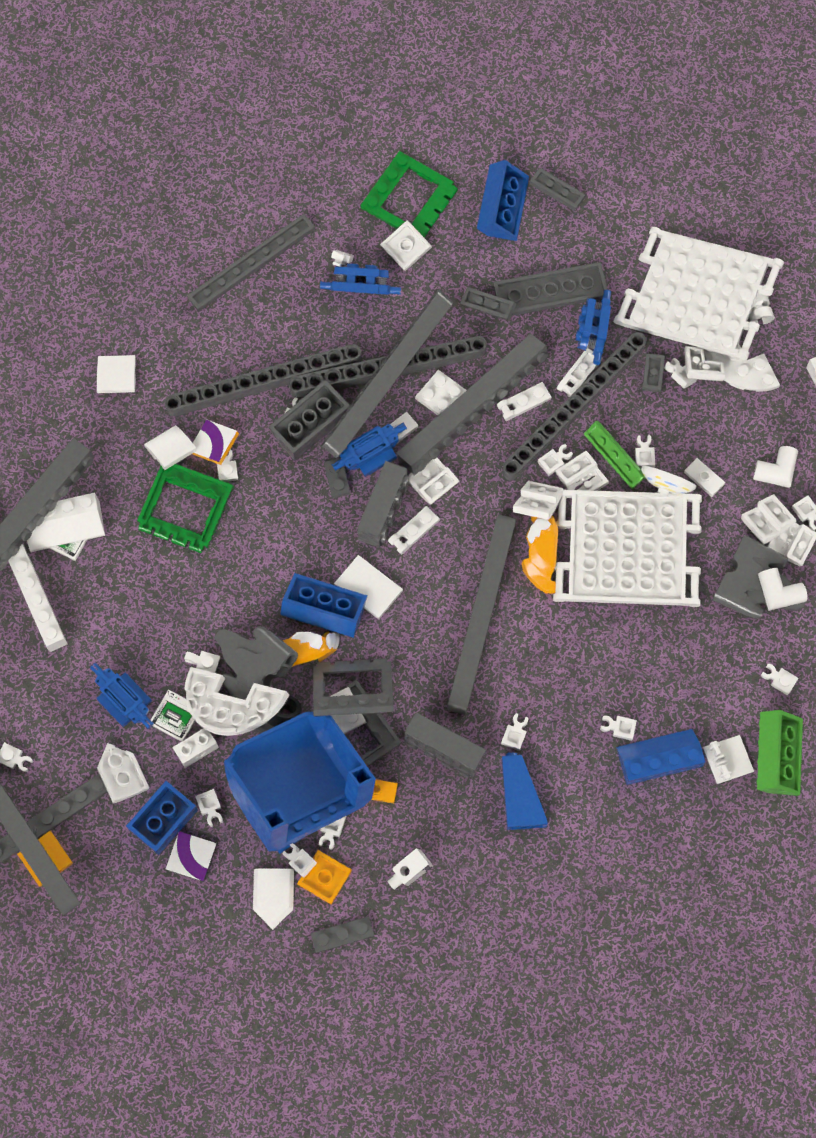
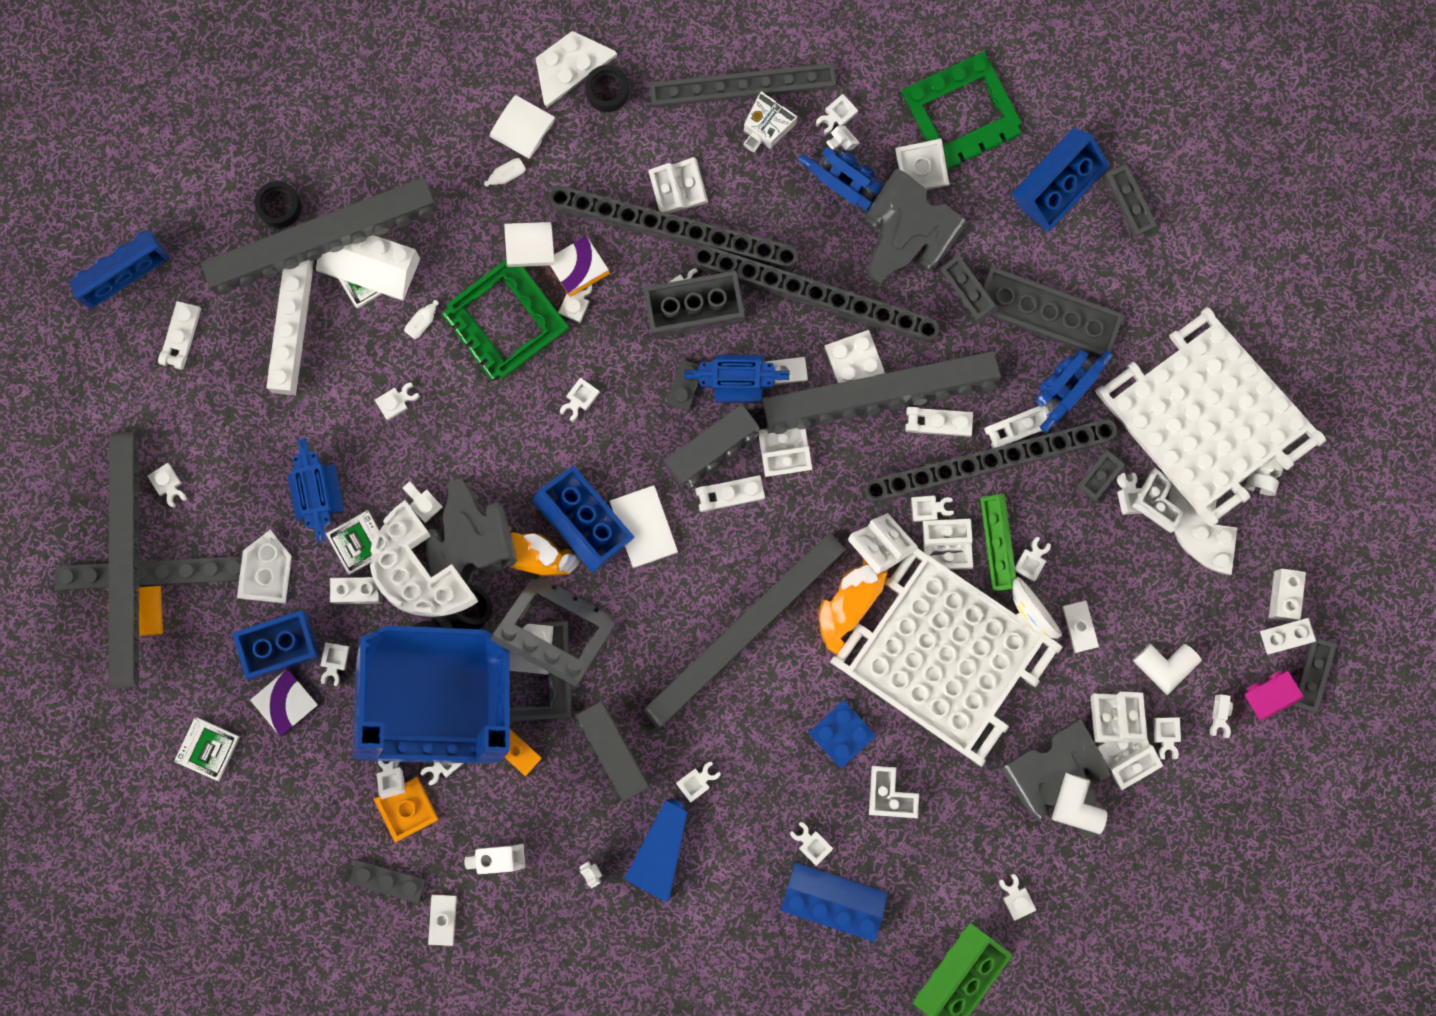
camera: 30 degrees right, 10 degrees up
(123, 316) = (569, 64): none -> white wing
(124, 410) = (506, 172): none -> white piece
(126, 542) = (421, 320): none -> white piece
(141, 607) = (393, 403): none -> white plate
(155, 922) = (207, 749): none -> white tile
(164, 328) = (602, 71): none -> black tyre
(248, 351) = (678, 186): none -> white slope
(270, 526) = (581, 397): none -> white plate
(273, 894) = (343, 794): white tile -> none
(284, 276) = (767, 123): none -> torso
(327, 243) = (838, 113): none -> white plate
(387, 373) = (807, 304): dark grey beam -> none
(398, 937) = (442, 920): none -> white plate
(418, 281) = (908, 225): none -> dark grey rock
(482, 839) = (591, 874): none -> white plate
(592, 642) = (842, 734): none -> blue plate
(650, 666) = (885, 800): none -> white brick
(728, 759) = (904, 950): white hinge -> none

